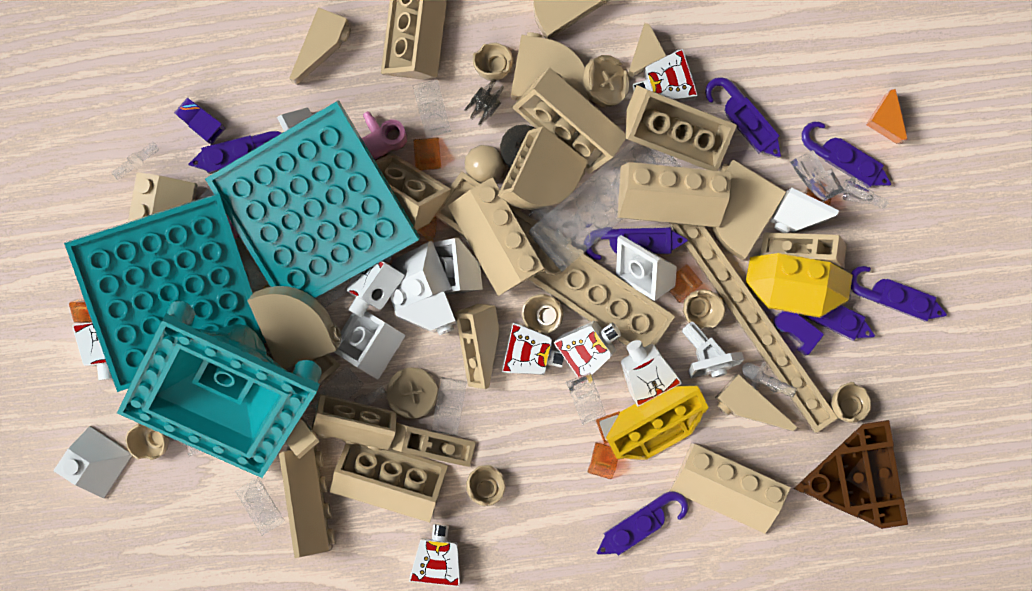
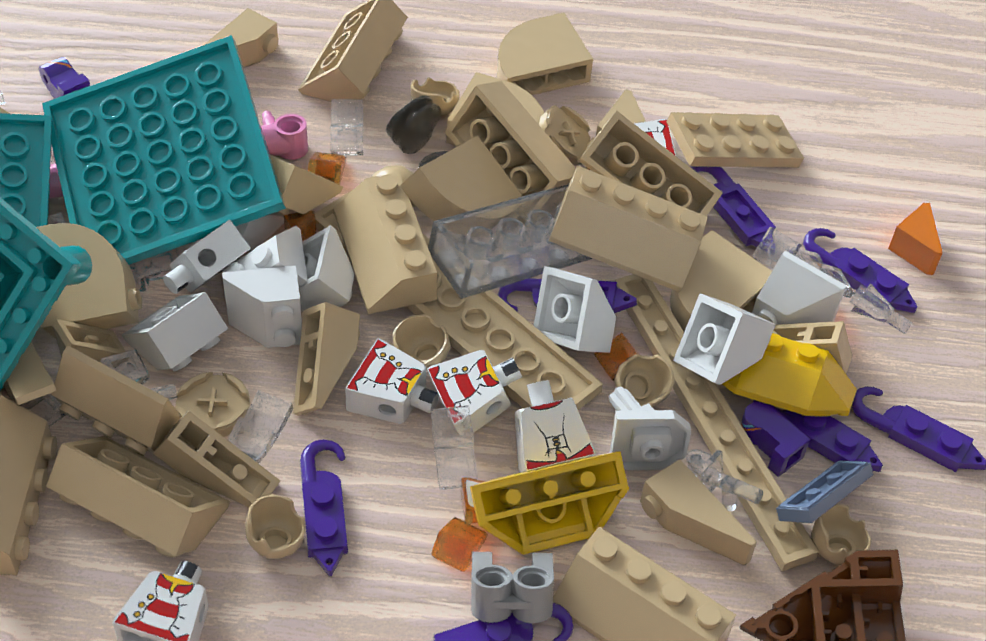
camera: 10 degrees right, 35 degrees down
(508, 454) = (323, 507): none -> dark purple plate
(646, 496) = (500, 593): none -> light grey piece
(738, 52) = (734, 140): none -> tan plate
(755, 276) = (722, 340): none -> white slope
(782, 170) = (773, 246): none -> clear bracket
(838, 374) = (824, 491): none -> sand blue tile

